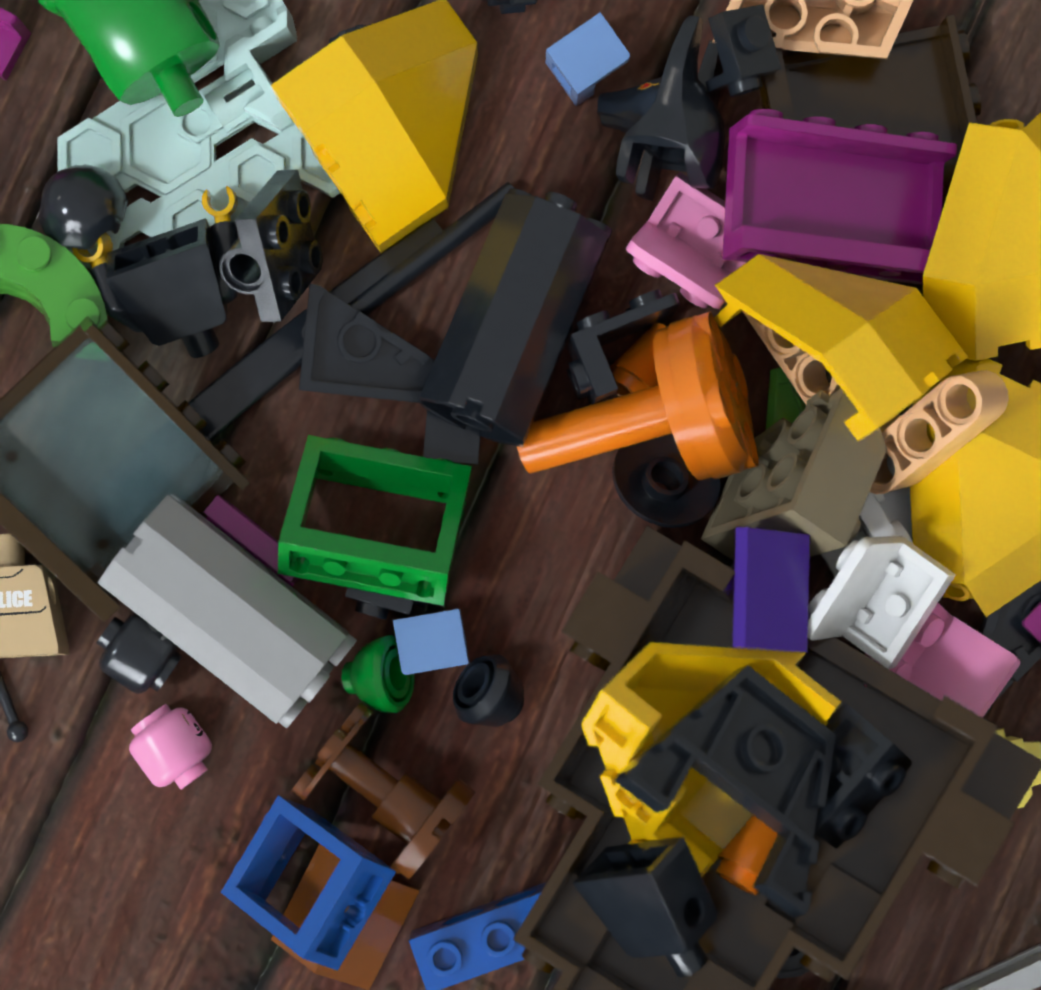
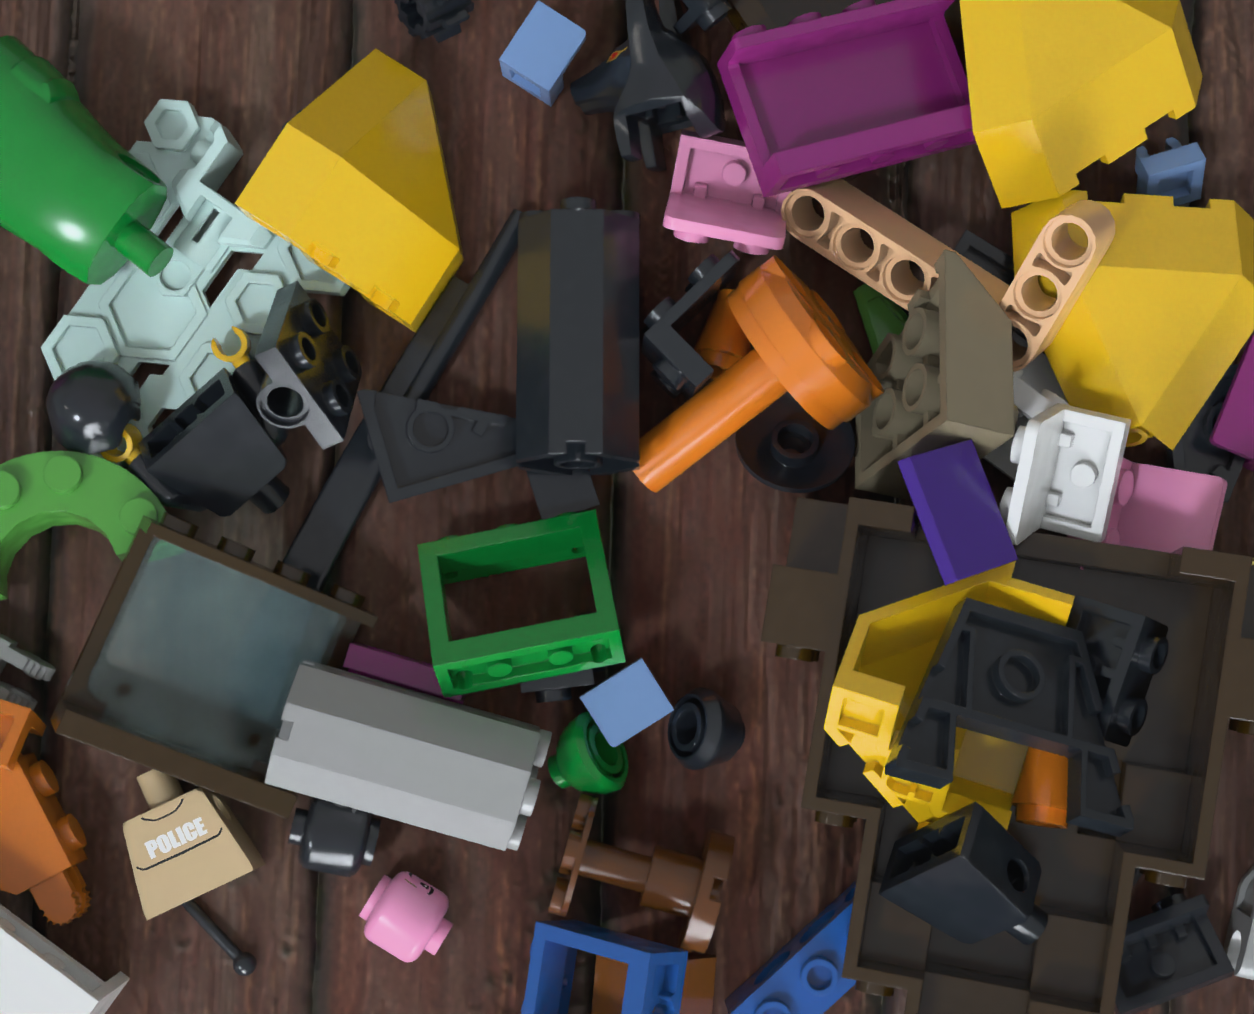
camera: 25 degrees left, 0 degrees up
(867, 332) = (939, 206): yellow panel -> none

